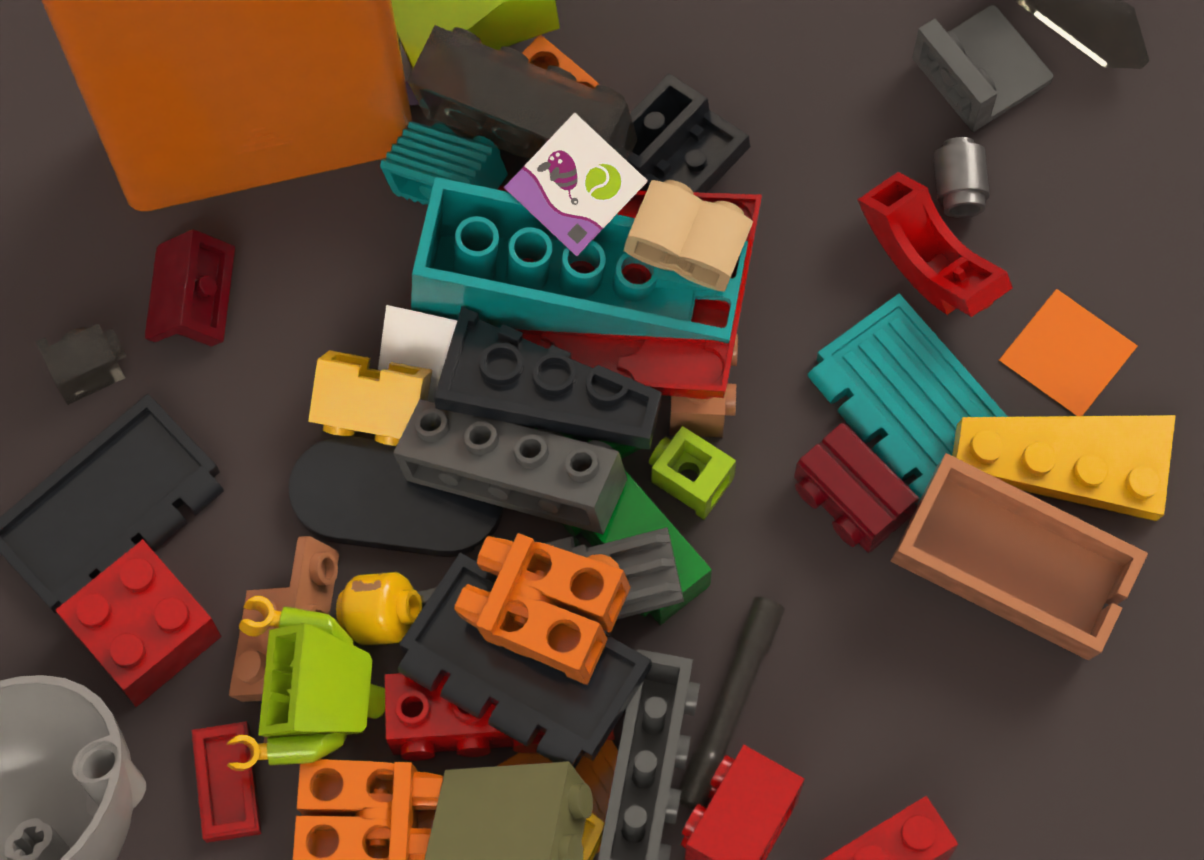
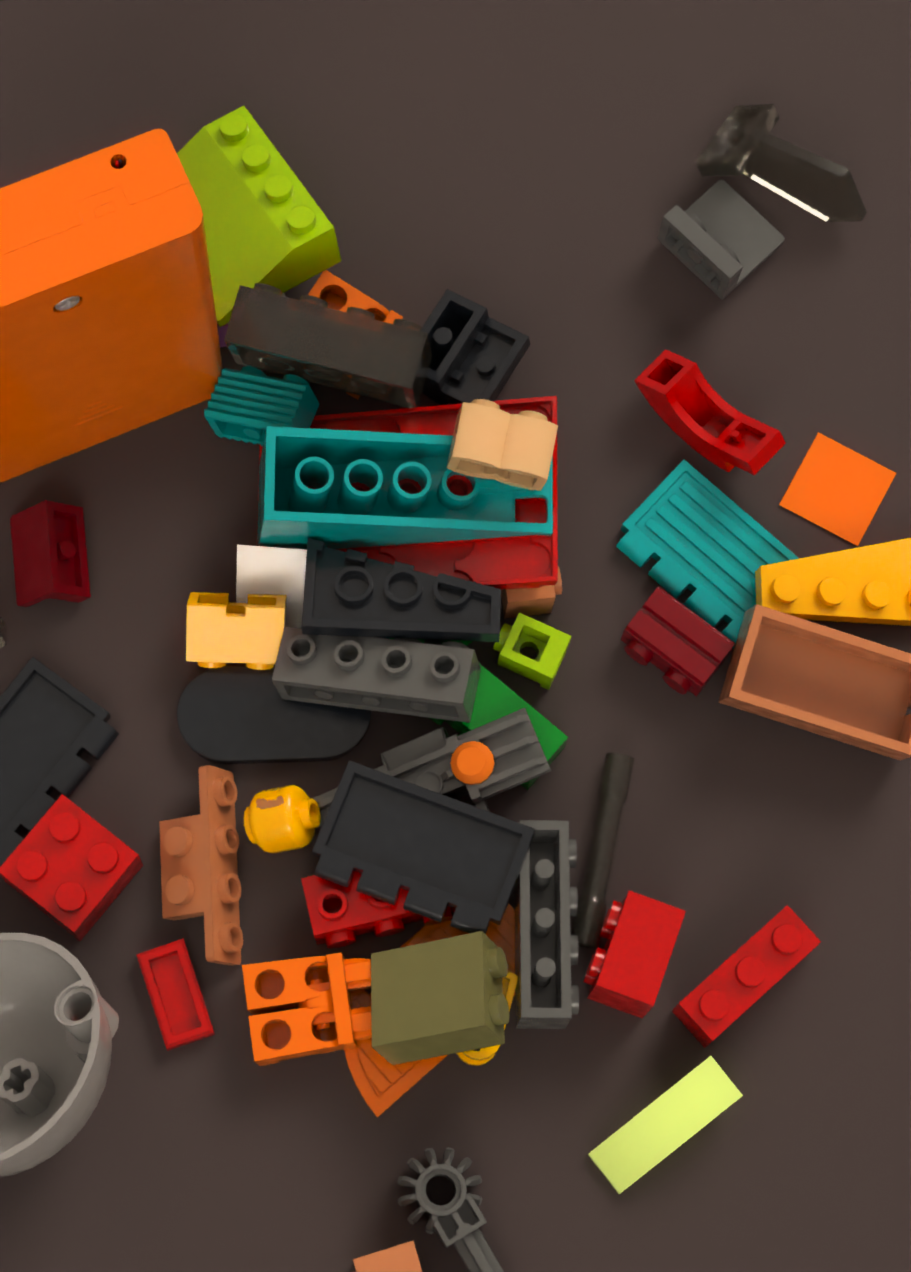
camera: 20 degrees left, 5 degrees up
(312, 687) = (240, 900): lime torso -> none
(545, 603) = (419, 794): orange hips -> none
(575, 184) = (394, 414): sticker -> none
(961, 177) = (720, 344): flat silver brick -> none

